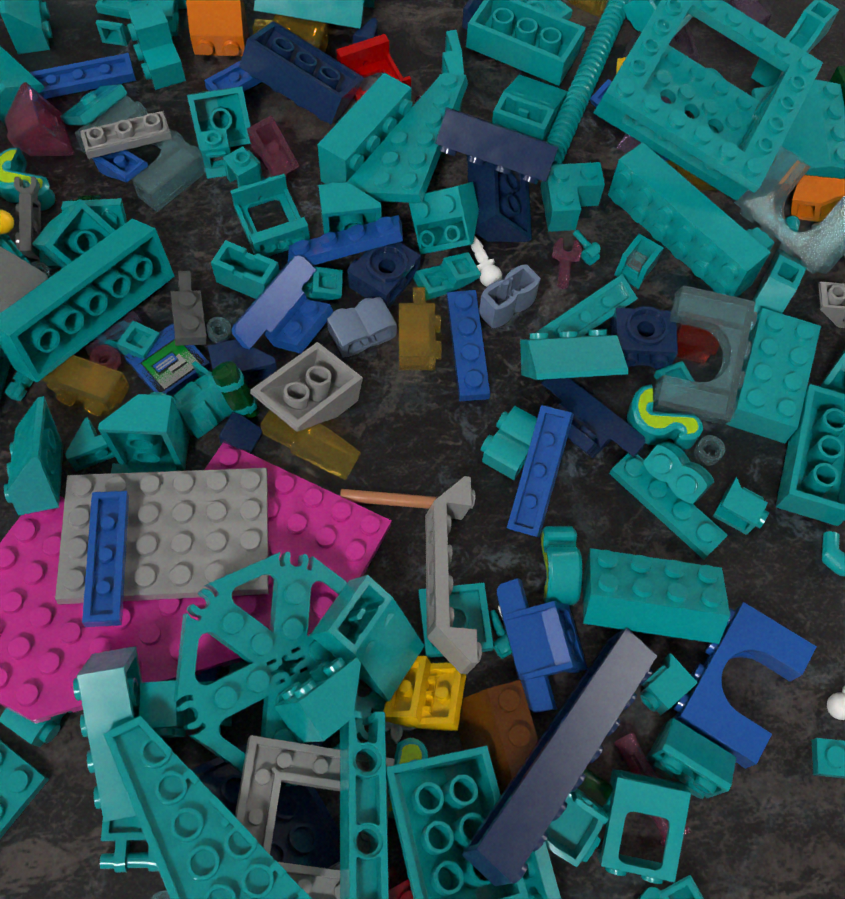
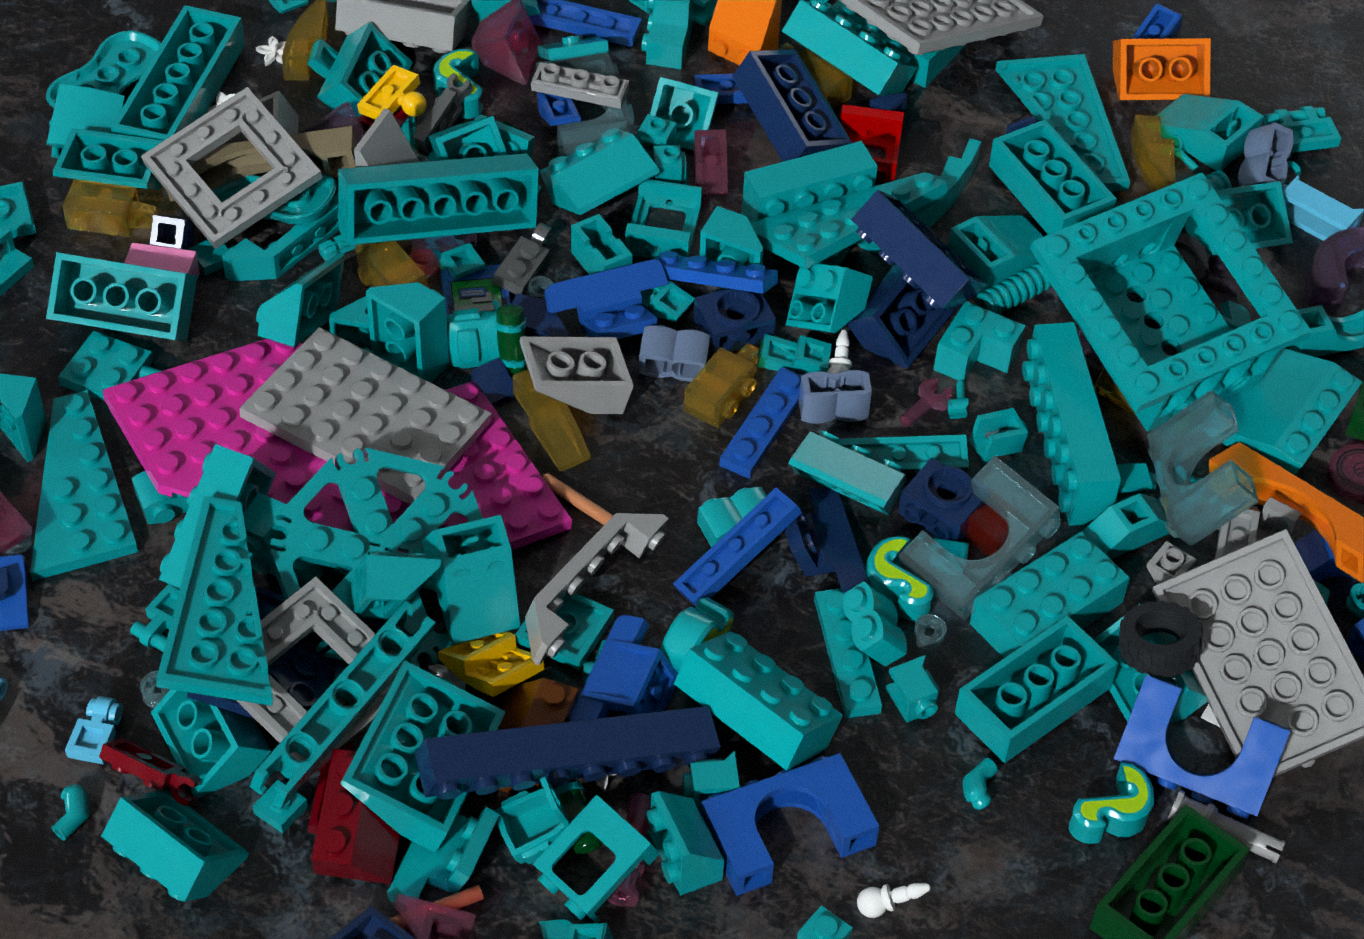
camera: 35 degrees right, 15 degrees down
(106, 559) = (301, 395): blue plate -> none
(195, 203) = (597, 171): none -> teal slope

